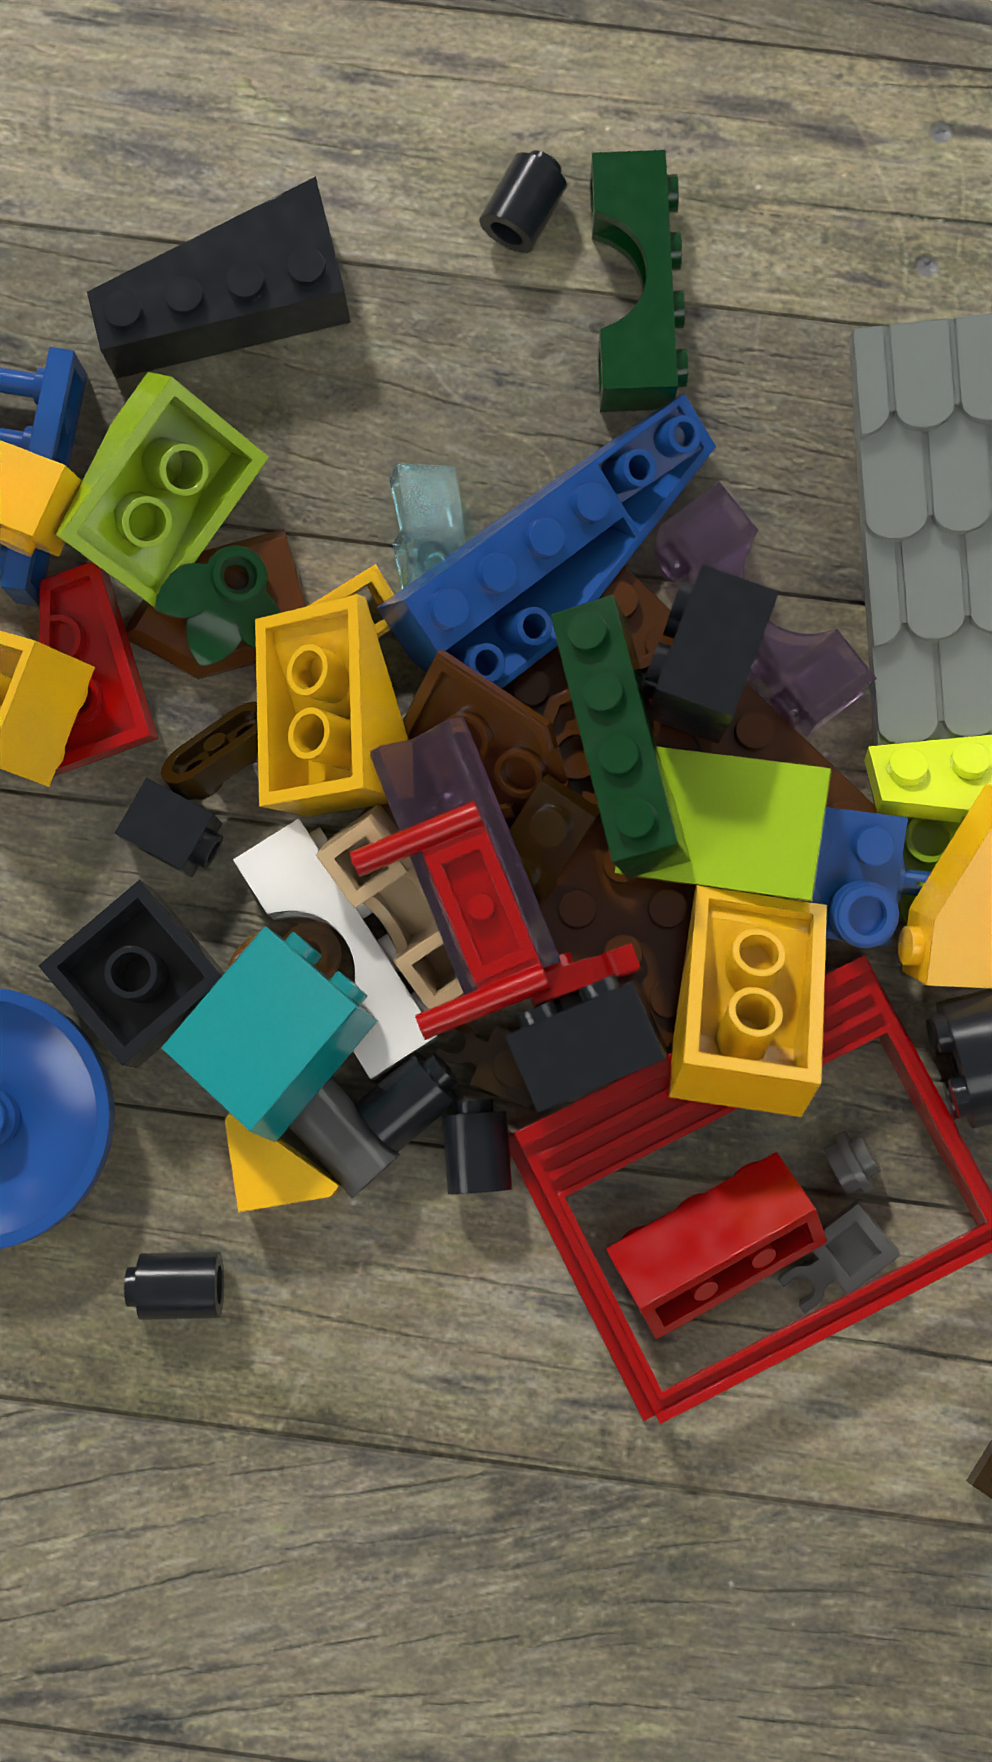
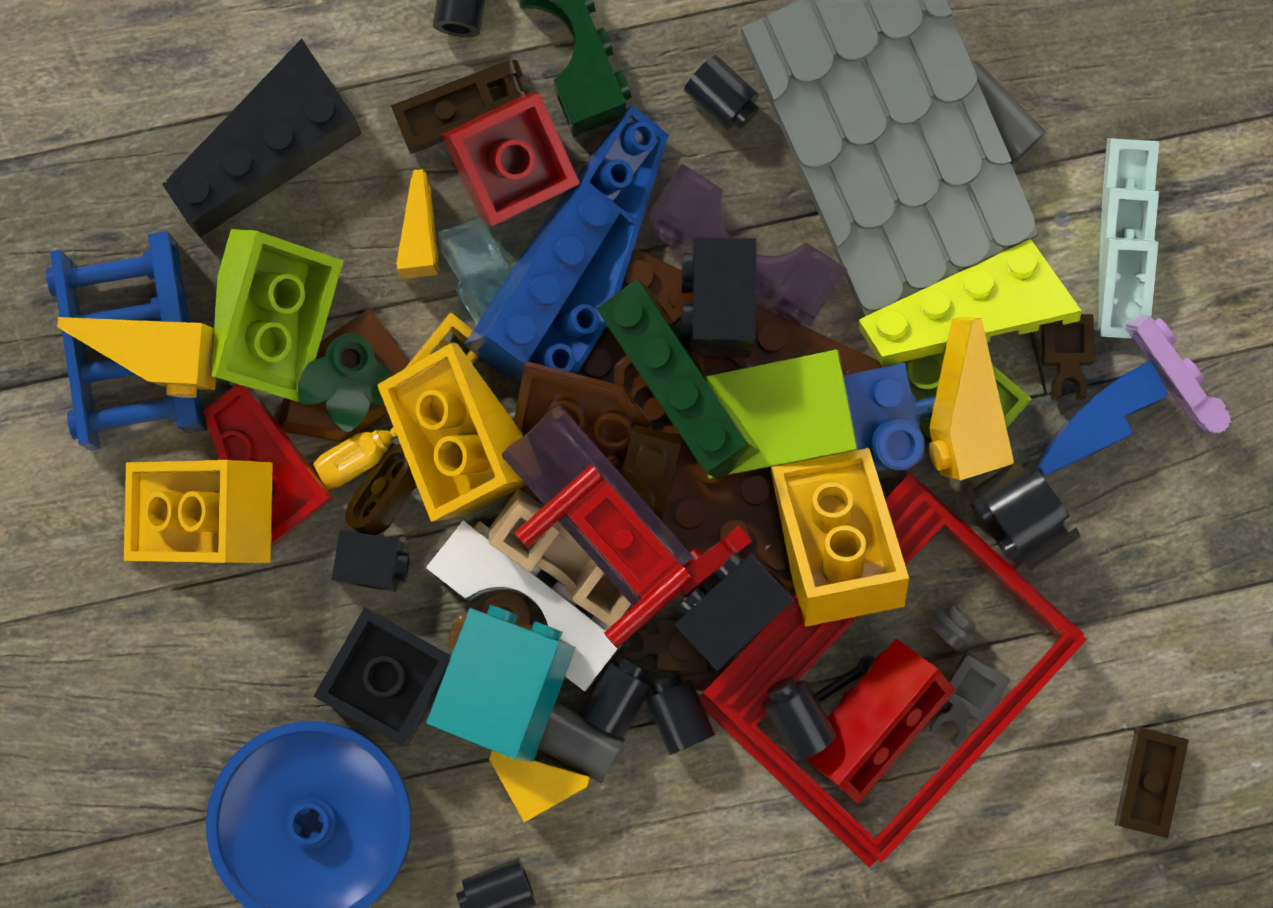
camera: 25 degrees left, 0 degrees up
(198, 698) = (353, 457): none -> yellow piece
(363, 480) = (418, 246): none -> yellow slope
(480, 328) = (453, 104): none -> dark brown plate
(514, 403) = (510, 158): none -> red brick
(619, 1208) = (798, 718): none -> black brick
(624, 1194) = (864, 665): none -> black hinge
(799, 418) = (722, 93): none -> black brick

